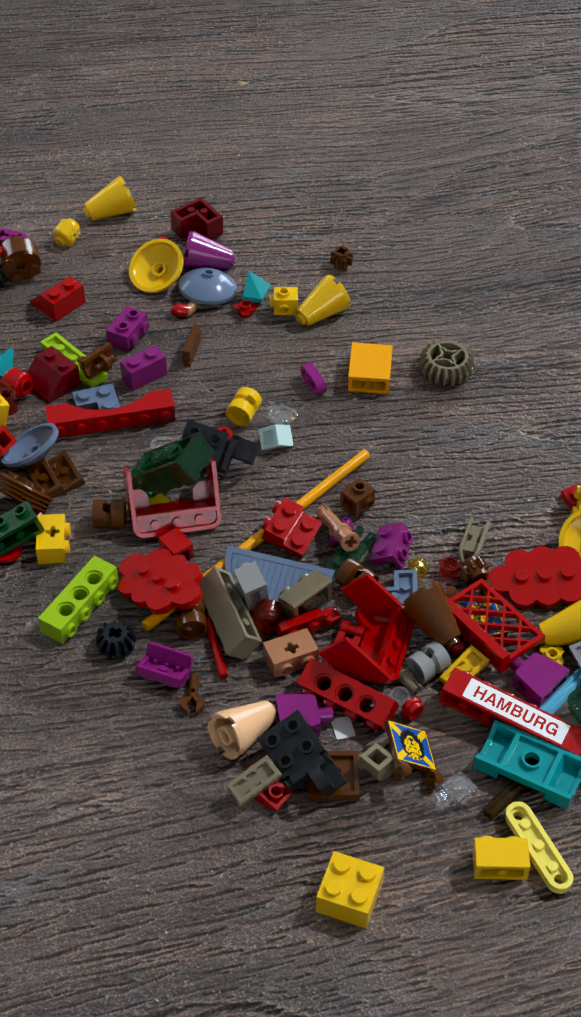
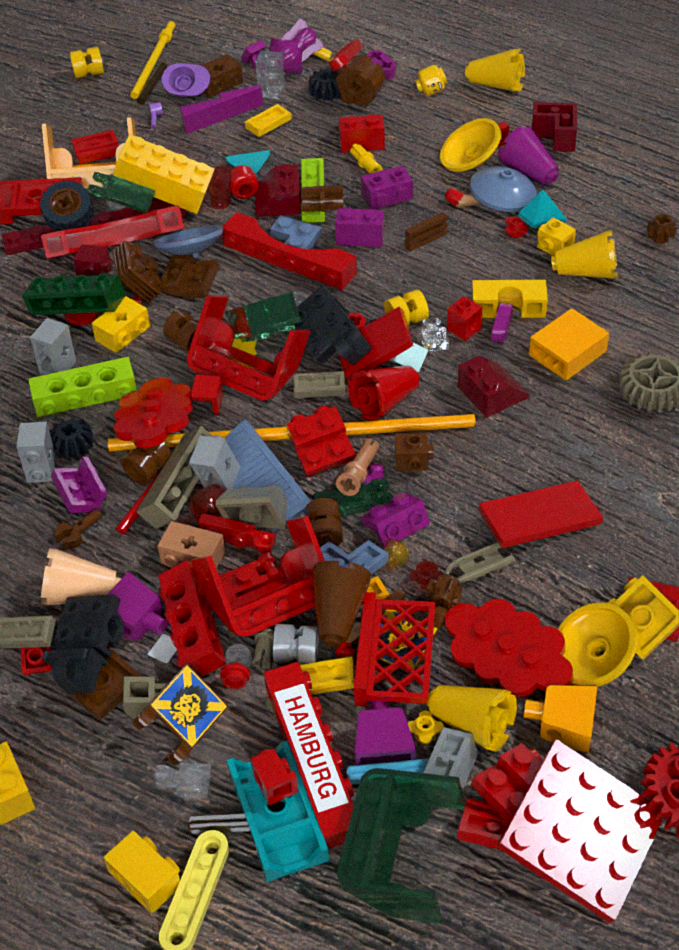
camera: 45 degrees right, 0 degrees up
(30, 585) = (53, 347): none -> light grey brick
(85, 317) = (365, 159): none -> yellow axle
(111, 662) = (36, 451): none -> light grey brick
(242, 492) = (319, 384): none -> dark tan plate
(262, 429) = (388, 339): none -> red tile
(286, 365) = (527, 295): none -> yellow arch
(288, 389) = (464, 318): none -> red brick
(292, 471) = (381, 389): none -> red cone
(351, 427) = (489, 386): none -> dark red slope
(473, 486) = (540, 514): none -> red tile
(518, 742) = (273, 776): none -> red brick

